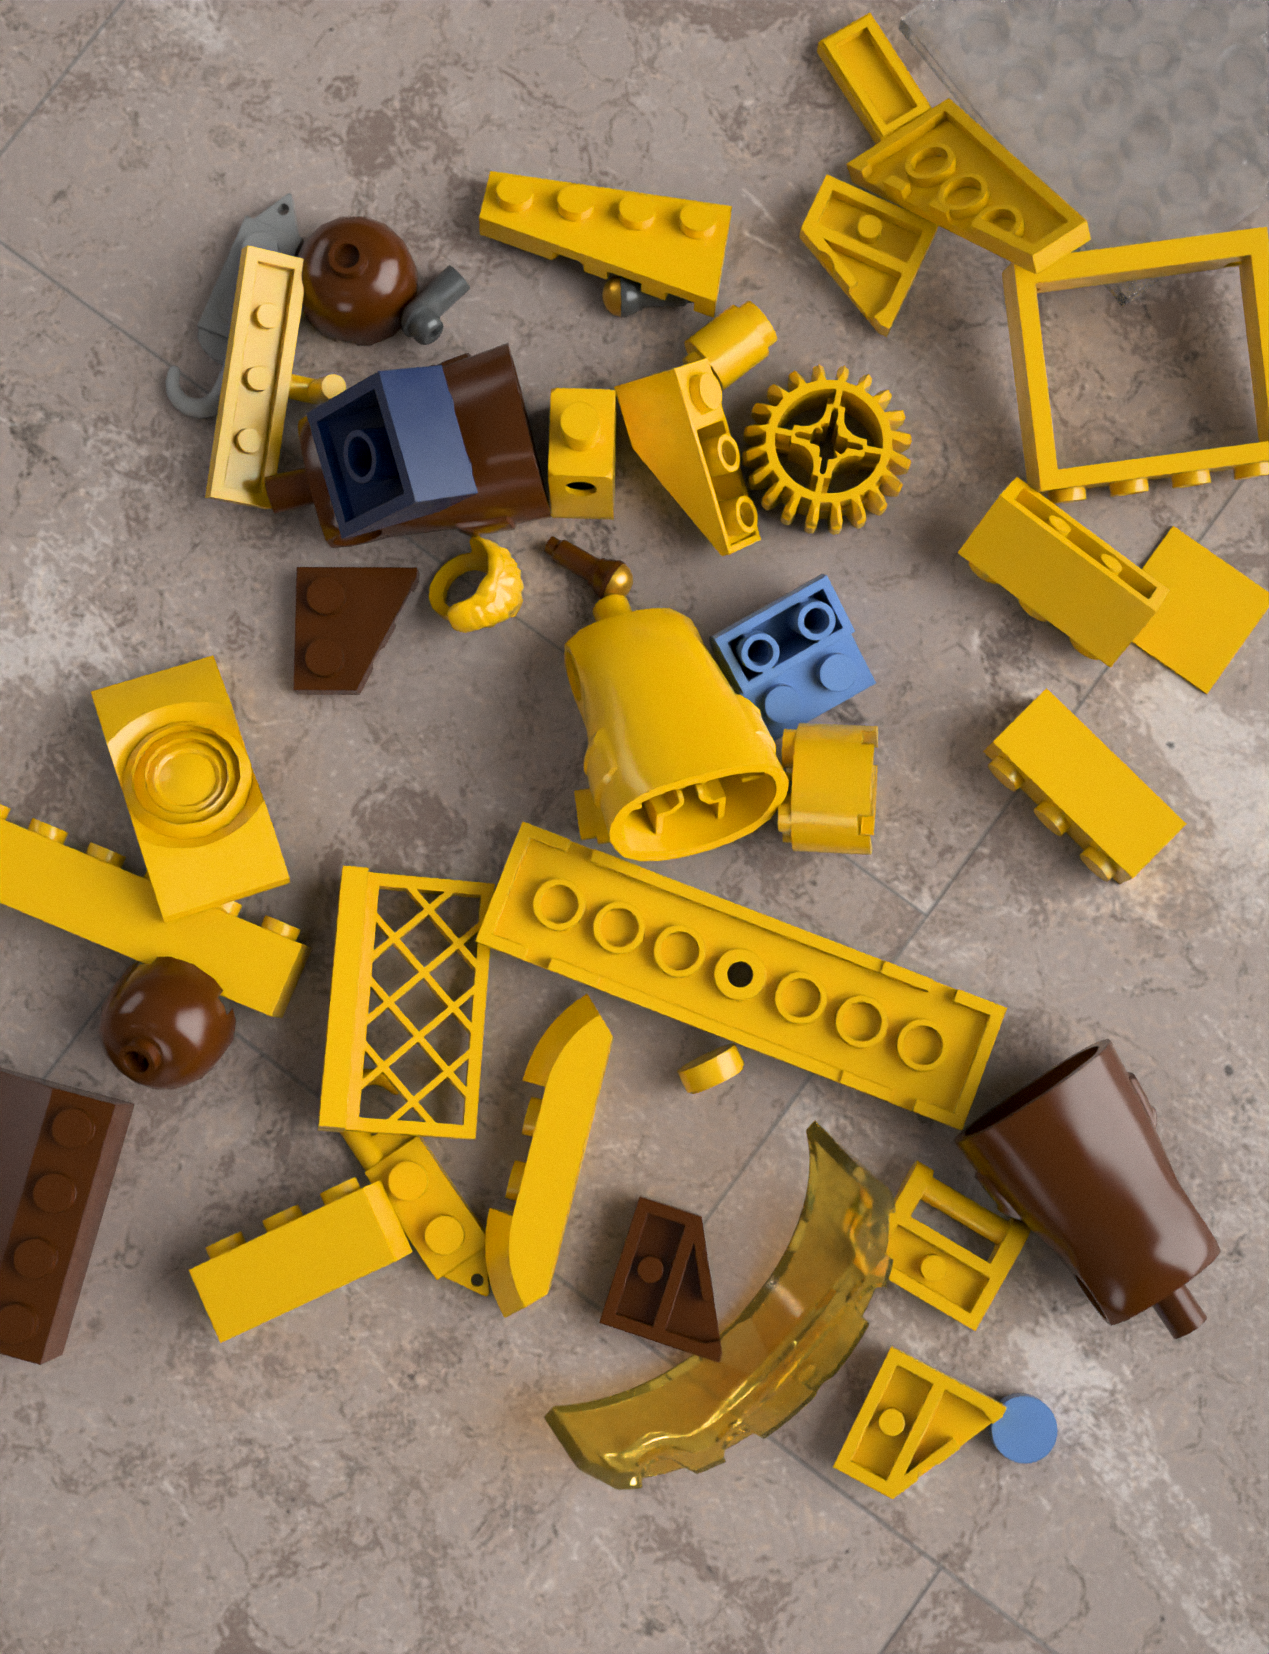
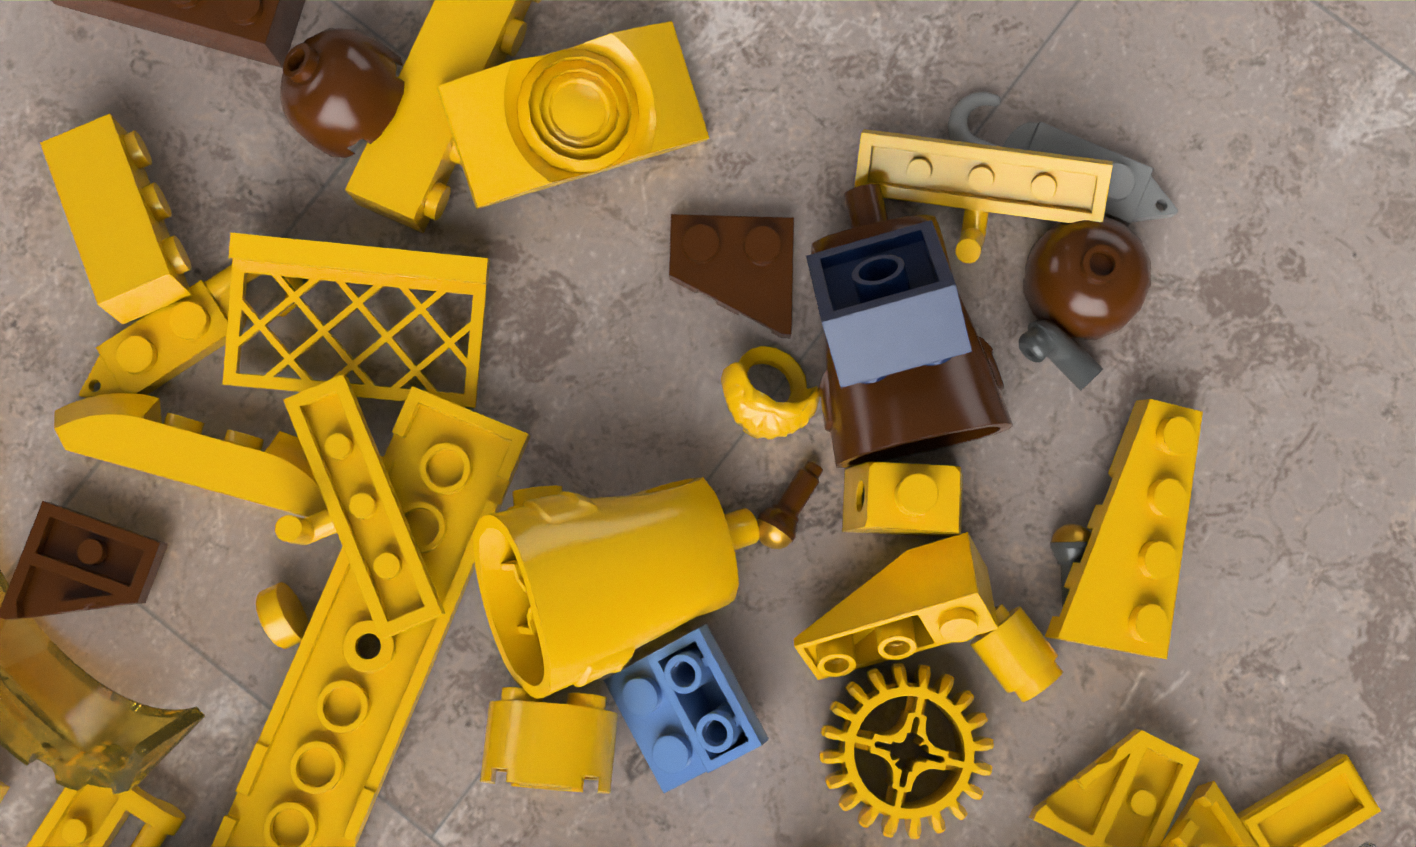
camera: 85 degrees right, 0 degrees up
(601, 980) = (359, 508): none -> yellow plate

